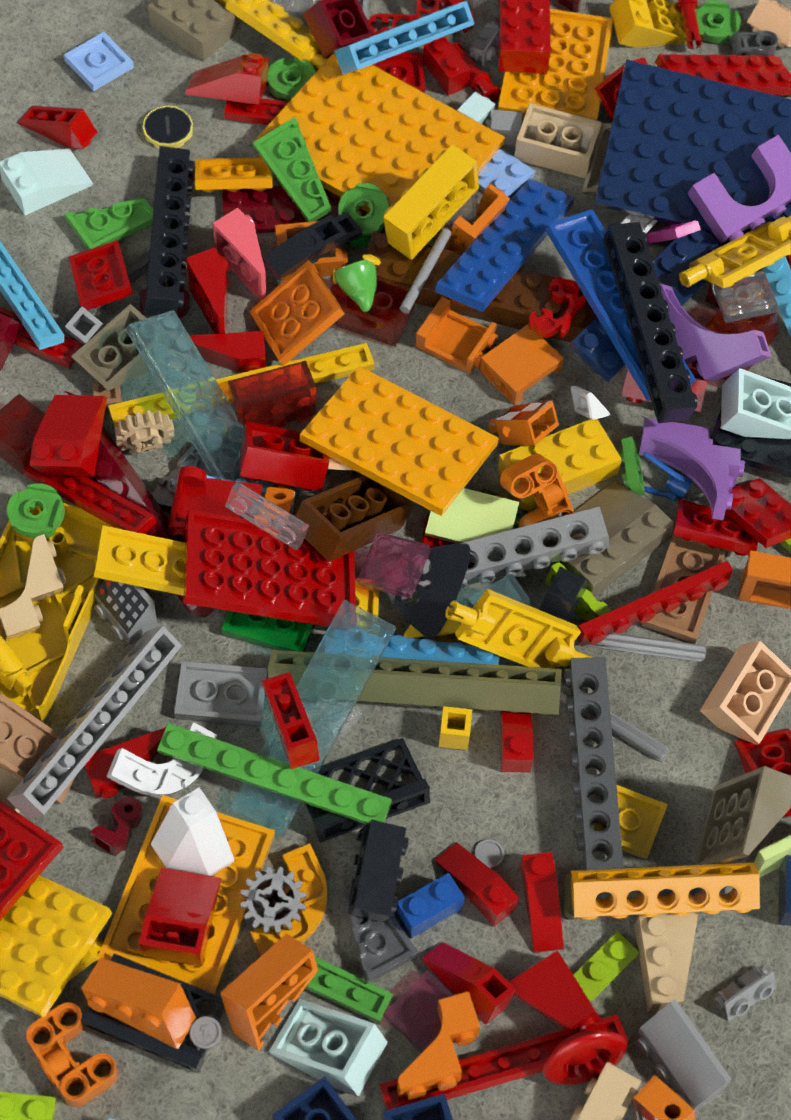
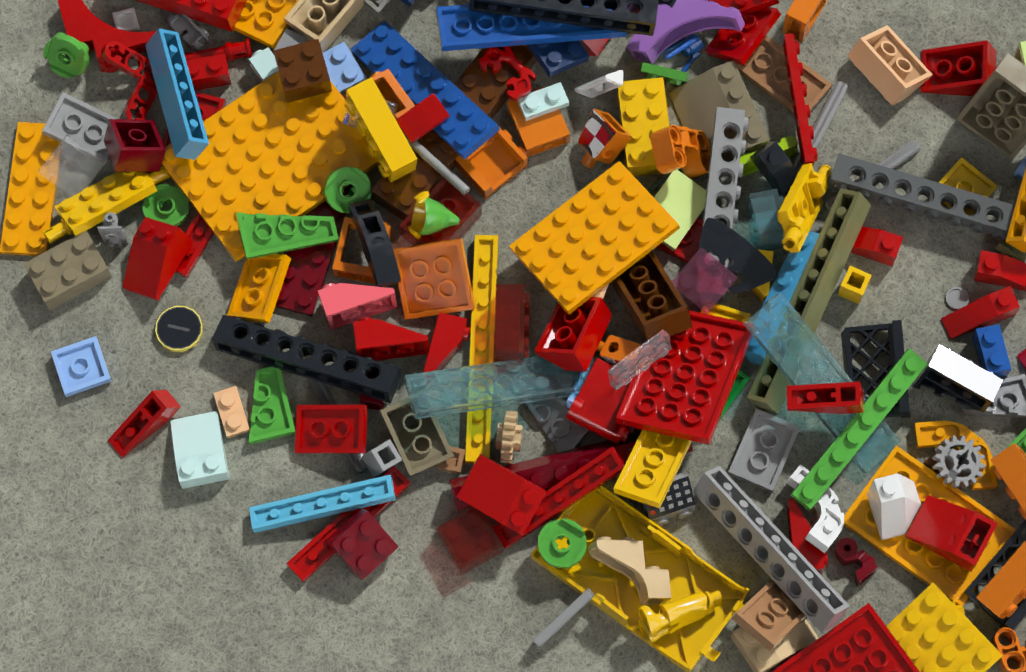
camera: 65 degrees left, 10 degrees up
(95, 194) = (231, 412): none -> light nougat plate
(244, 34) = (111, 232): none -> light grey hinge
(465, 238) = (422, 118): none -> red slope
(476, 127) = (302, 70): none -> reddish brown brick
(541, 355) = (543, 101): none -> light aqua plate

